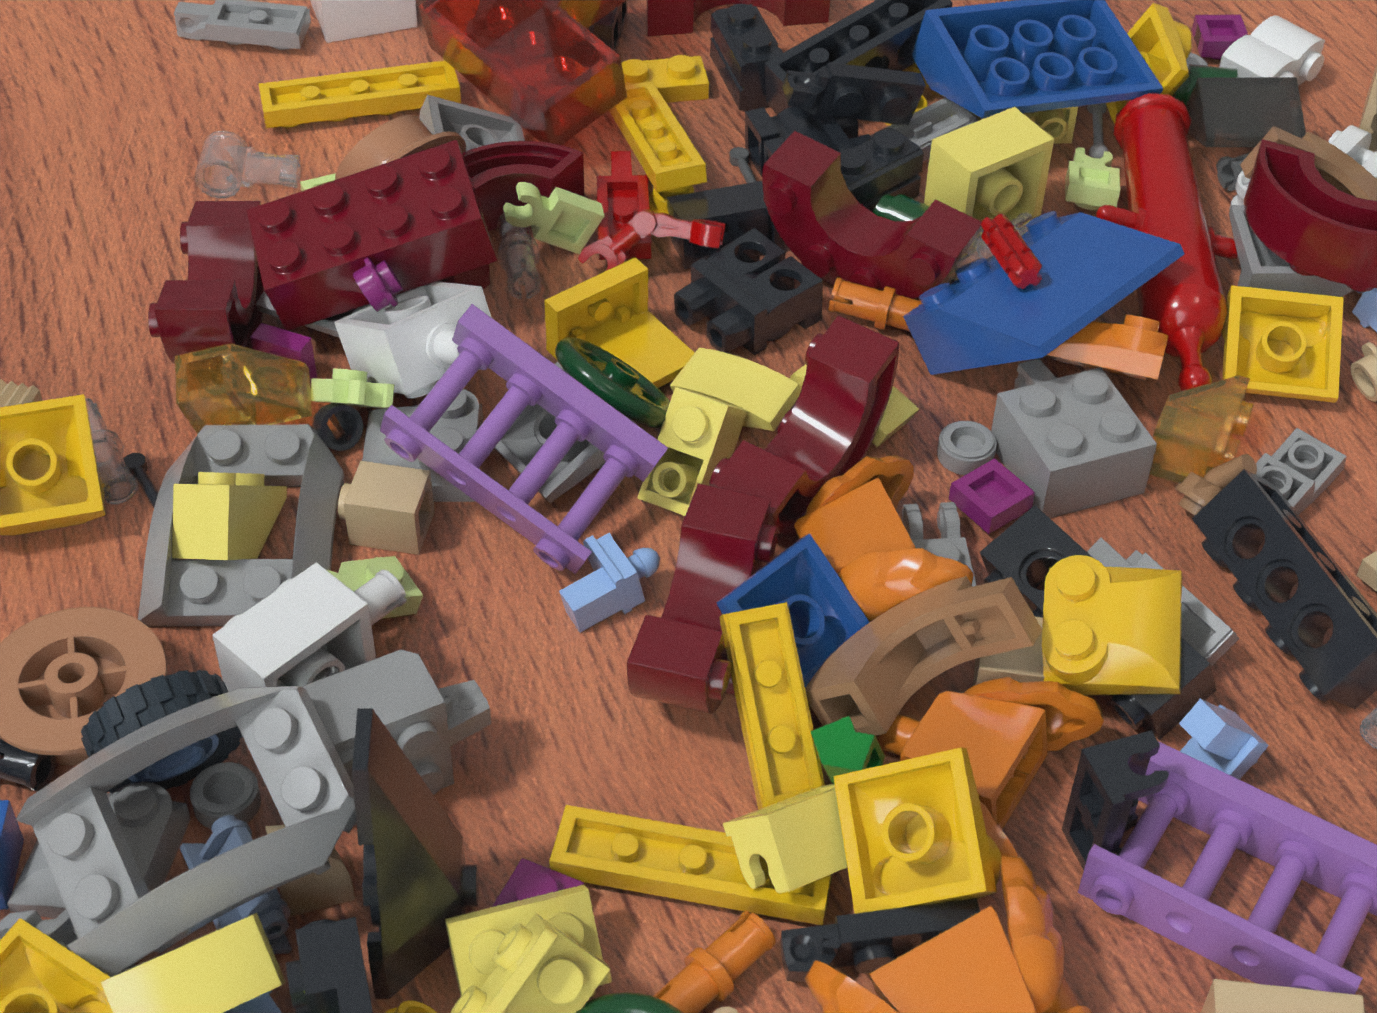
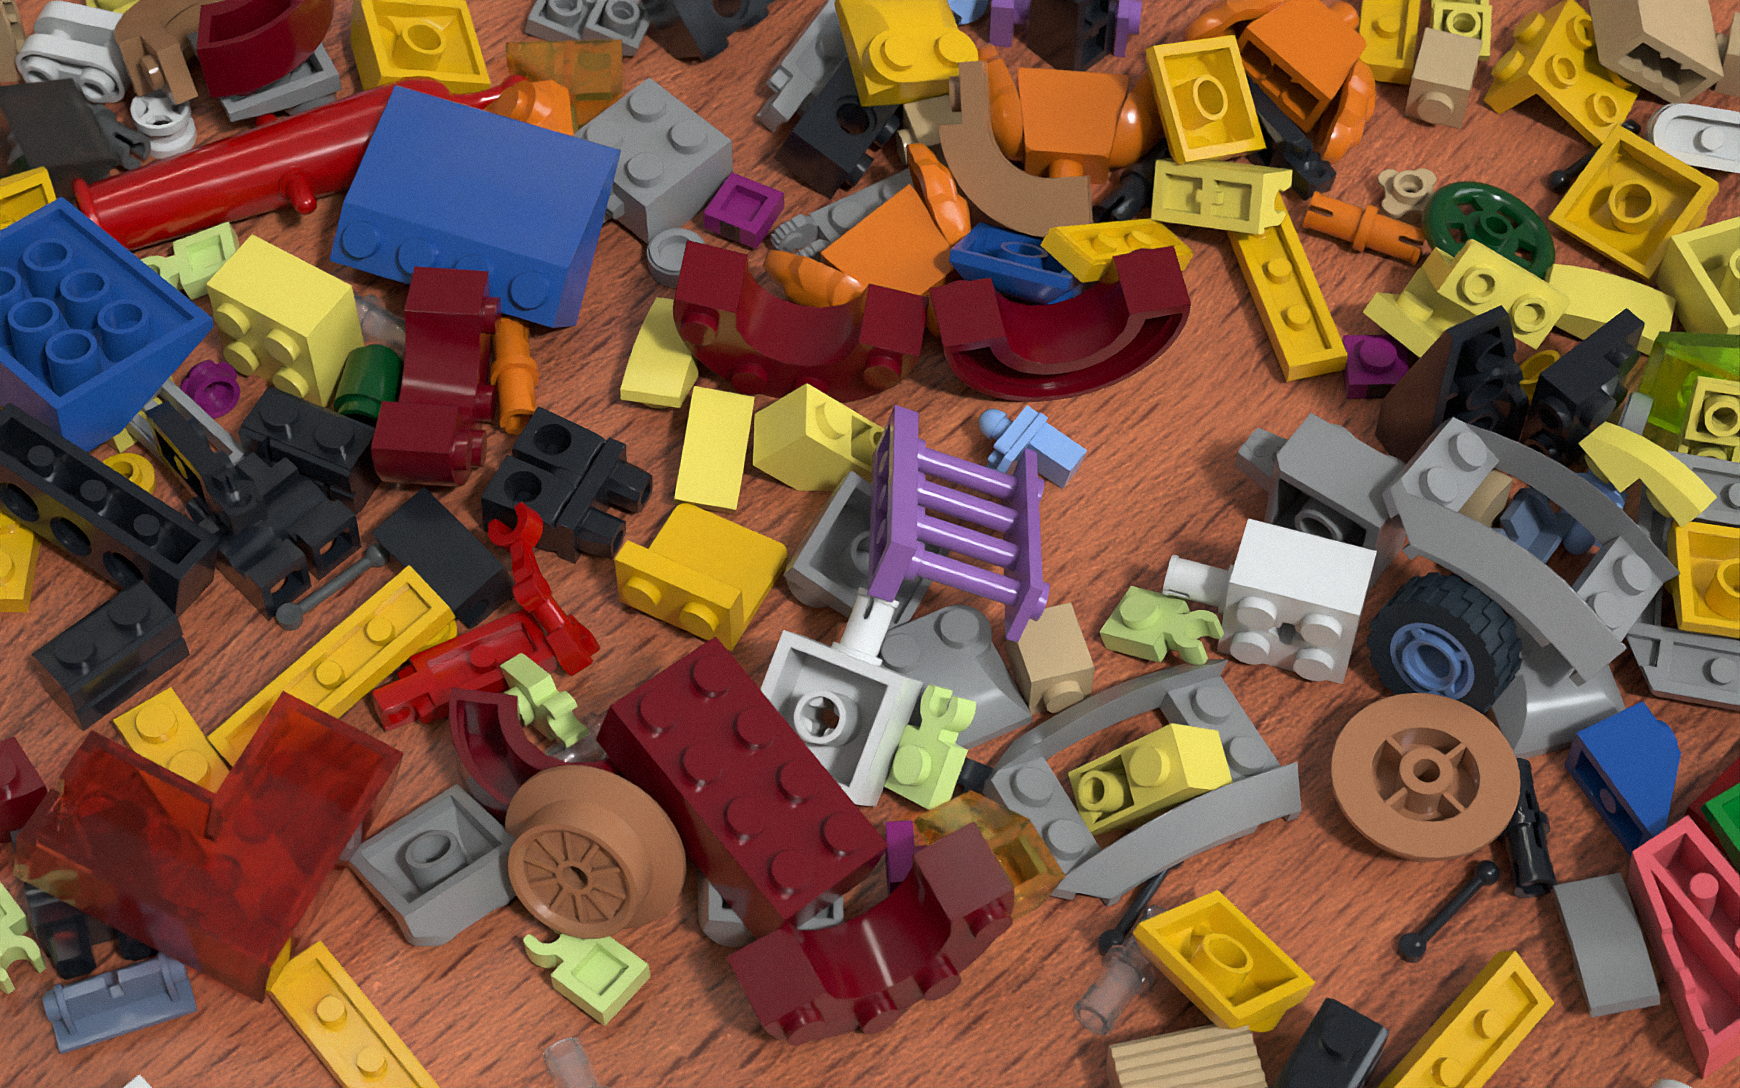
camera: 115 degrees left, 10 degrees up
(378, 284) = (823, 736): magenta plate -> none
(613, 381) = (808, 505): dark green plate -> none
(845, 749) = (1132, 187): green piece -> none
(1011, 251) = (466, 219): red axle -> none
(1201, 490) = (657, 61): medium nougat plate -> none

